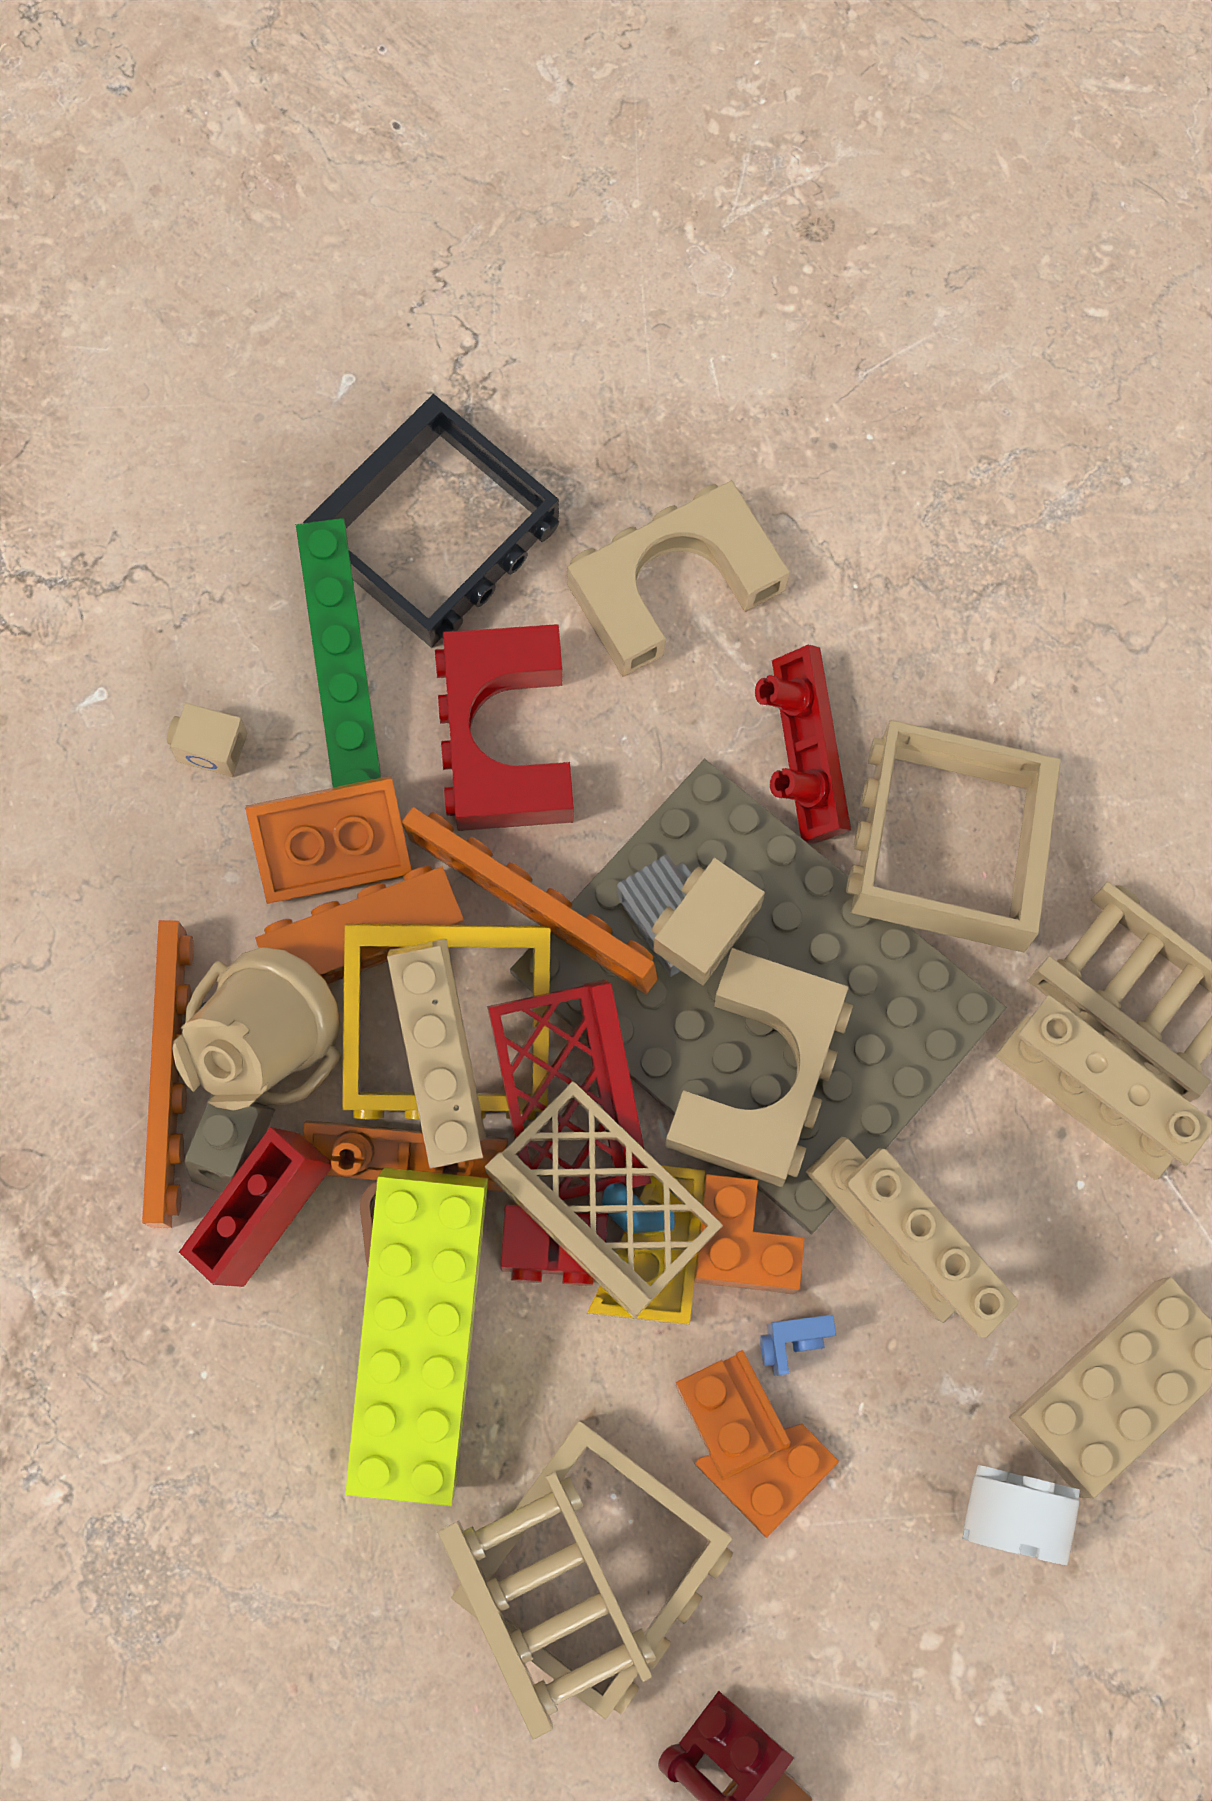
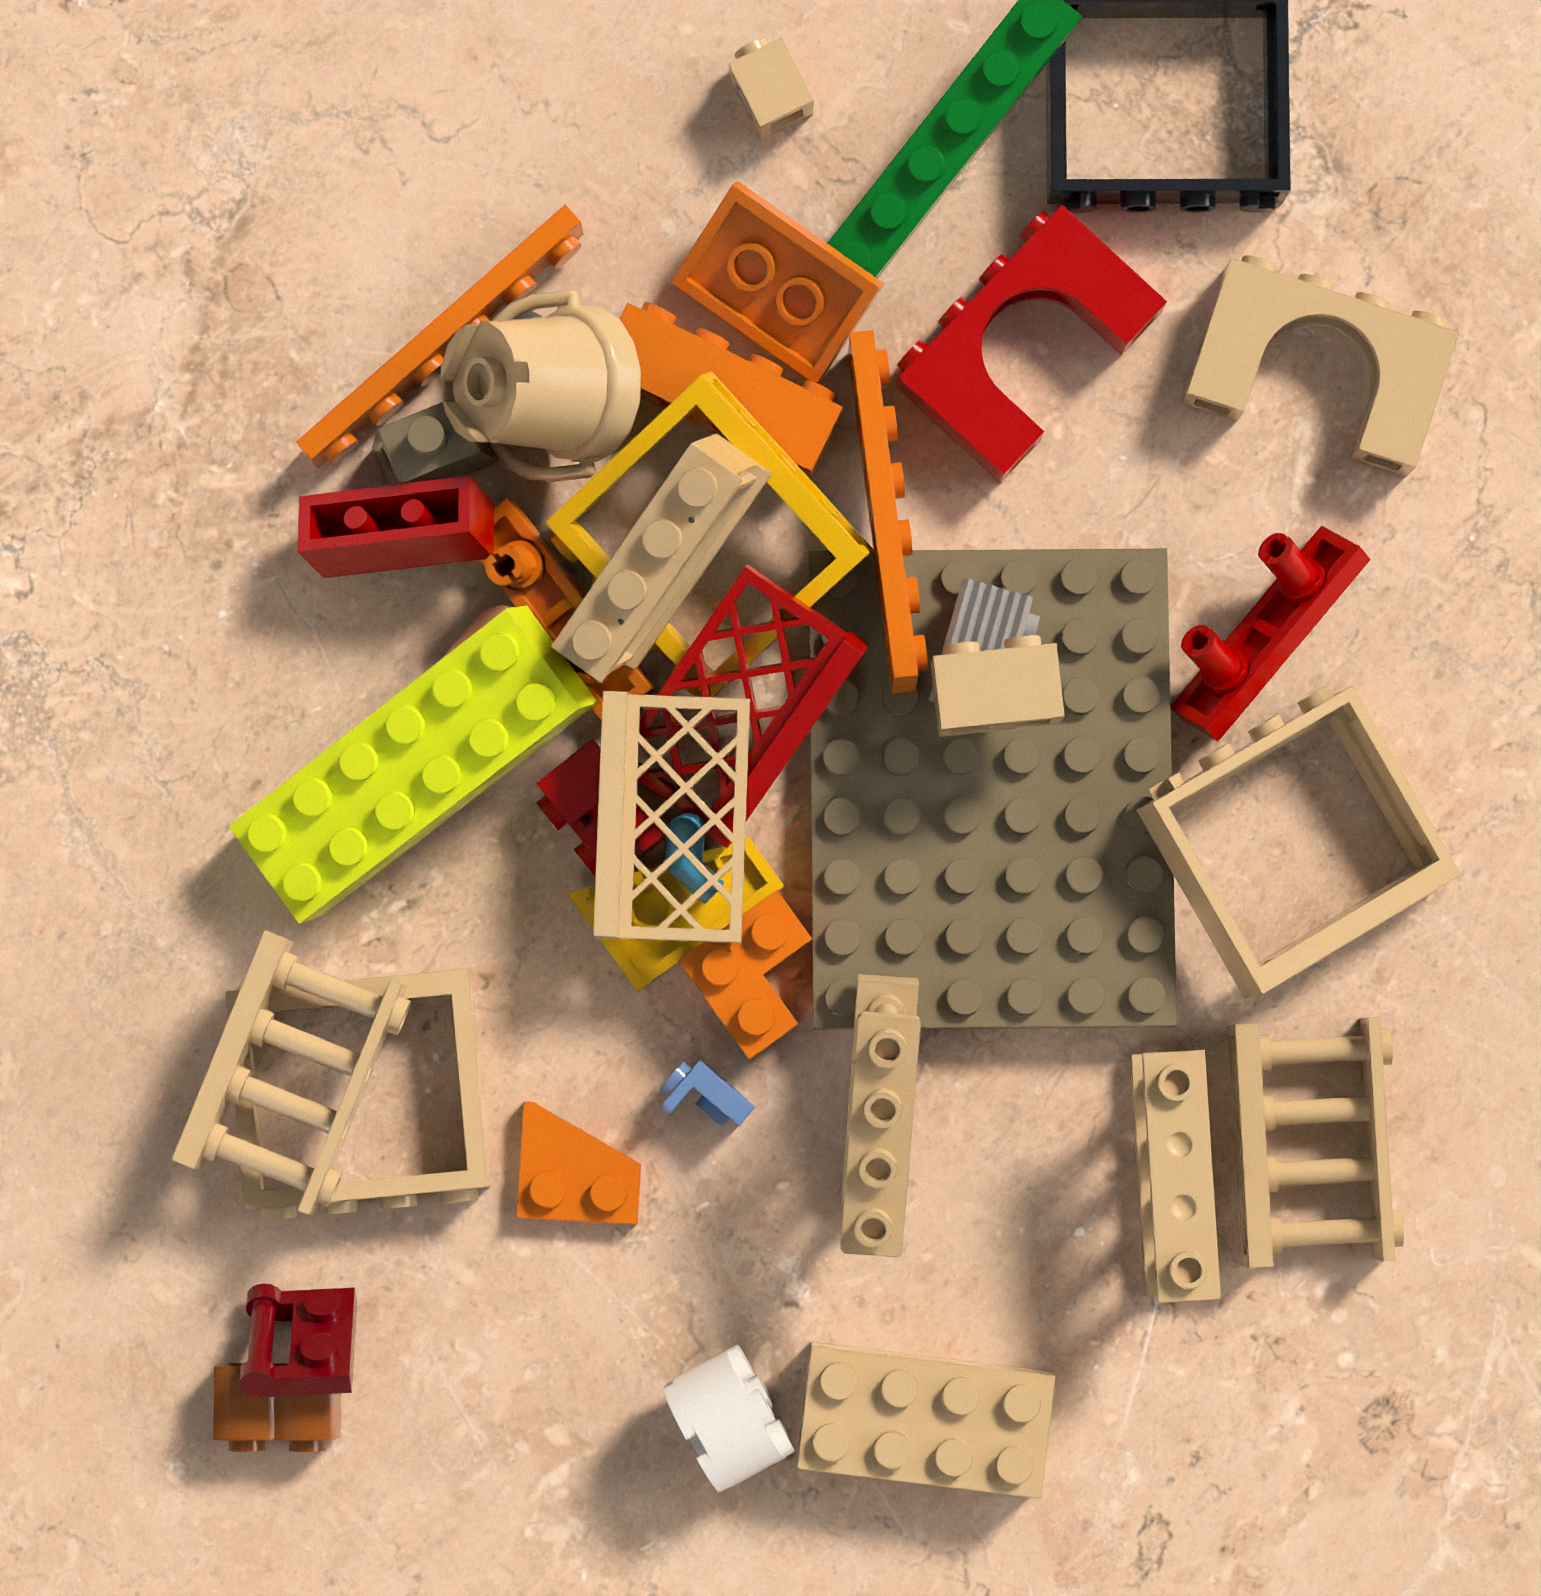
camera: 50 degrees right, 10 degrees up
(732, 1415) = (593, 1097): orange plate -> none
(806, 1015) = (1000, 856): tan arch -> none

